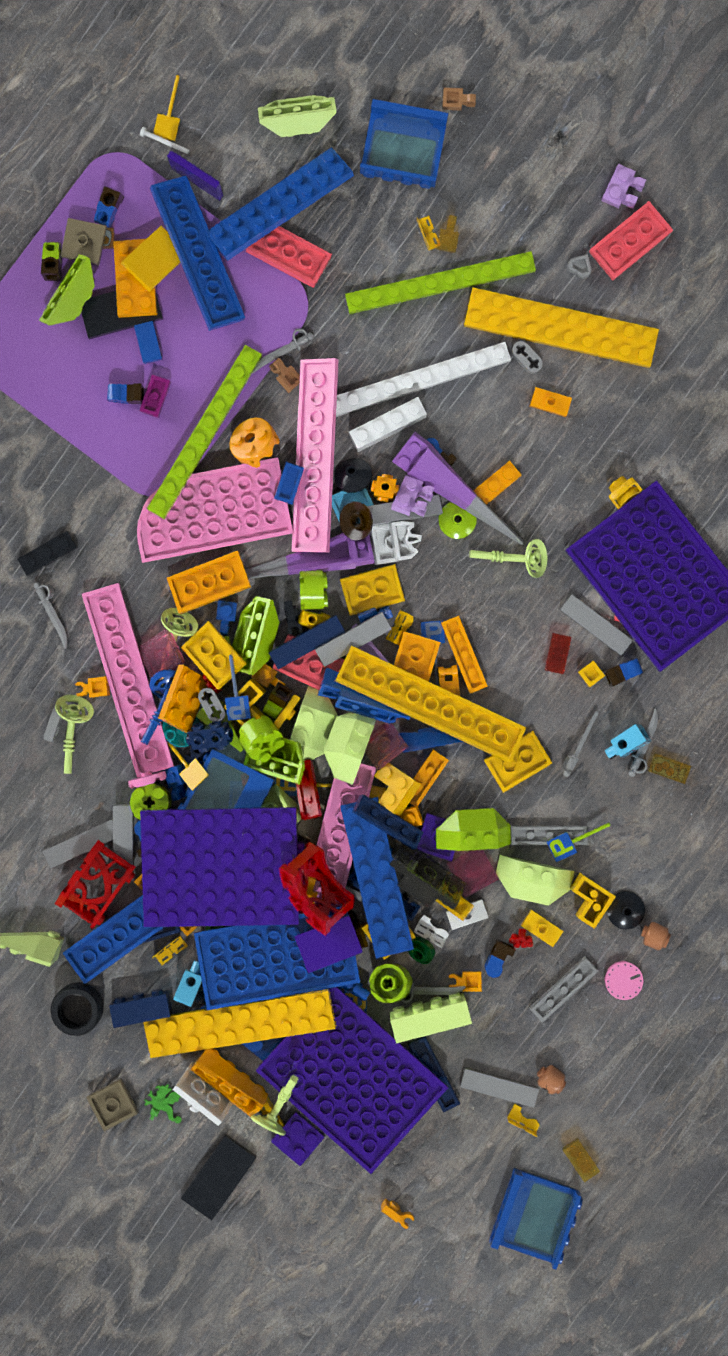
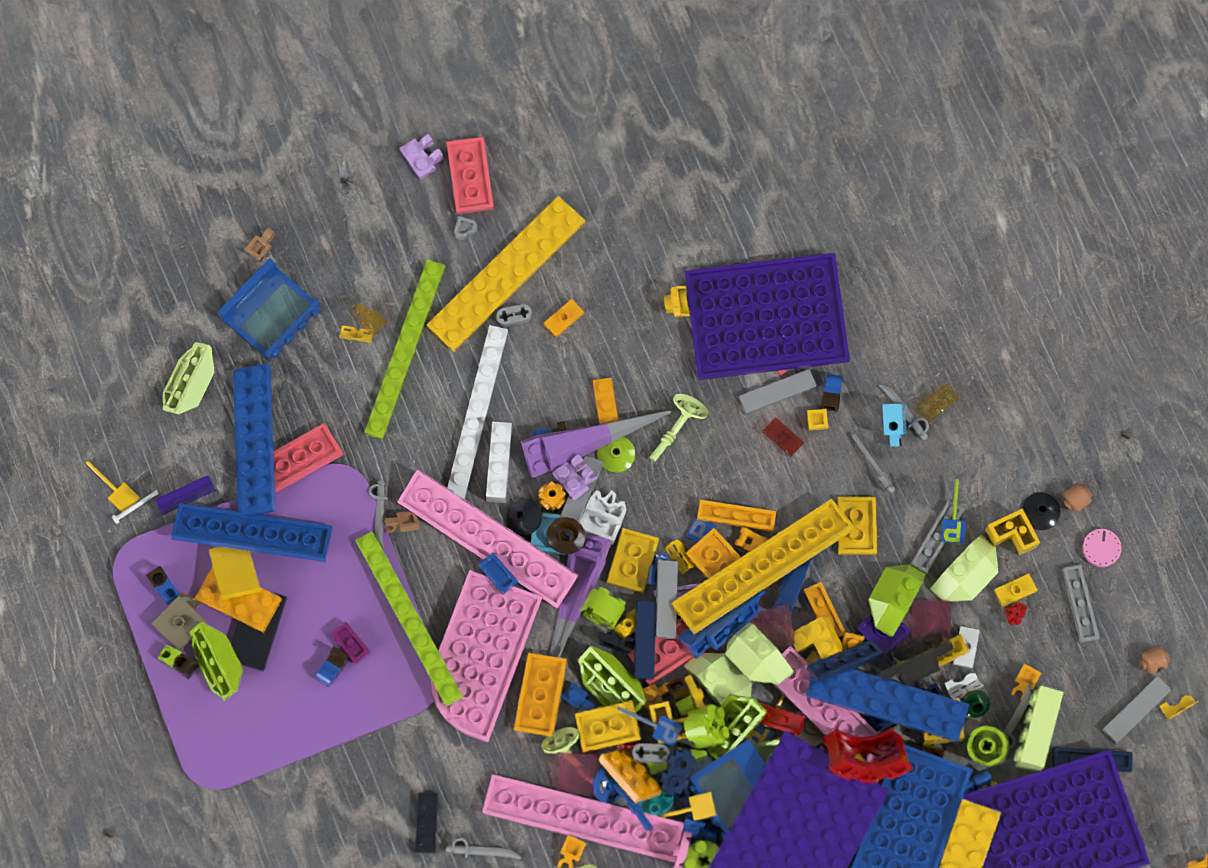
camera: 55 degrees left, 15 degrees down
(148, 342) = (299, 622): blue tile -> none
(260, 447) = (453, 584): light orange plate -> none
(324, 950) = (923, 783): dark purple tile -> none
(497, 957) = (1021, 646): leg -> none

